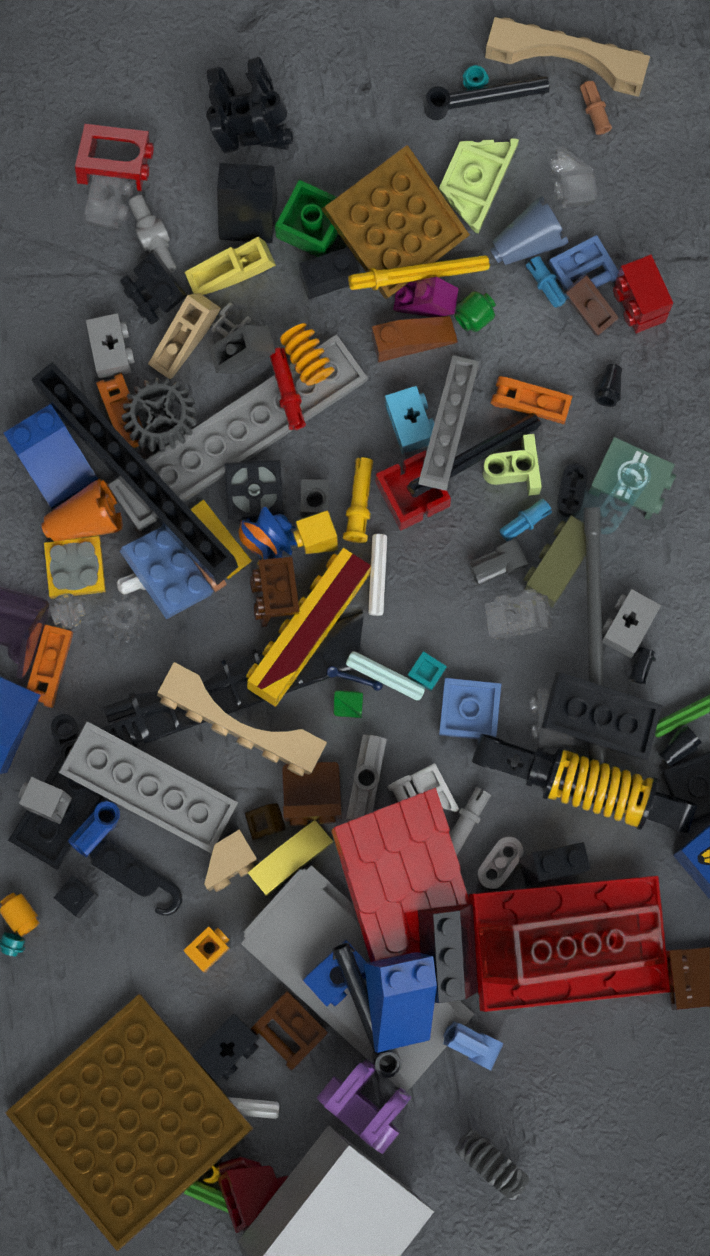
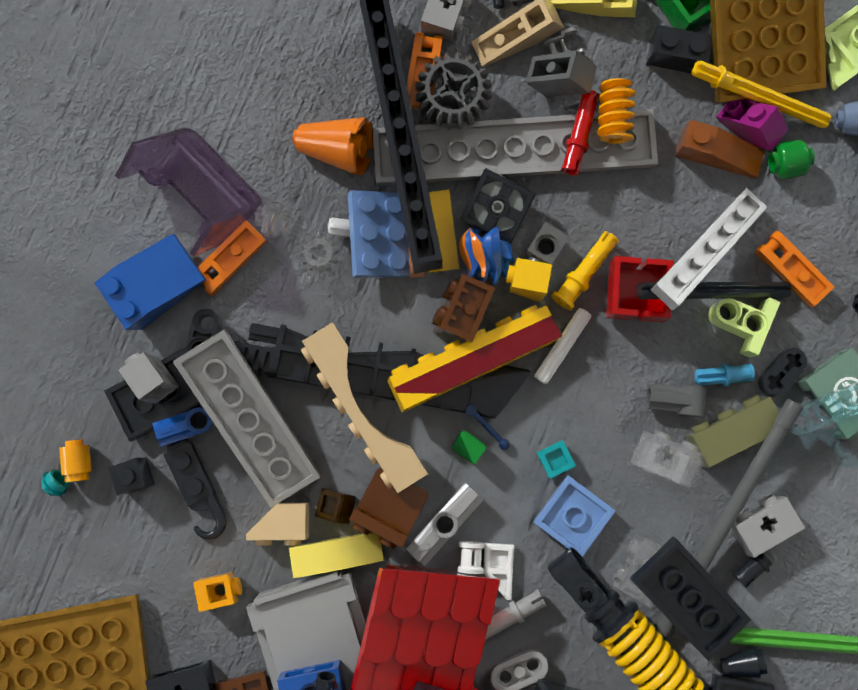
camera: 35 degrees right, 5 degrees up
(50, 456) = (338, 73): blue slope -> none
(75, 567) = (303, 184): light grey piece -> none
(385, 675) = (516, 441): light aqua axle -> none
(409, 434) = (664, 236): medium azure brick -> none

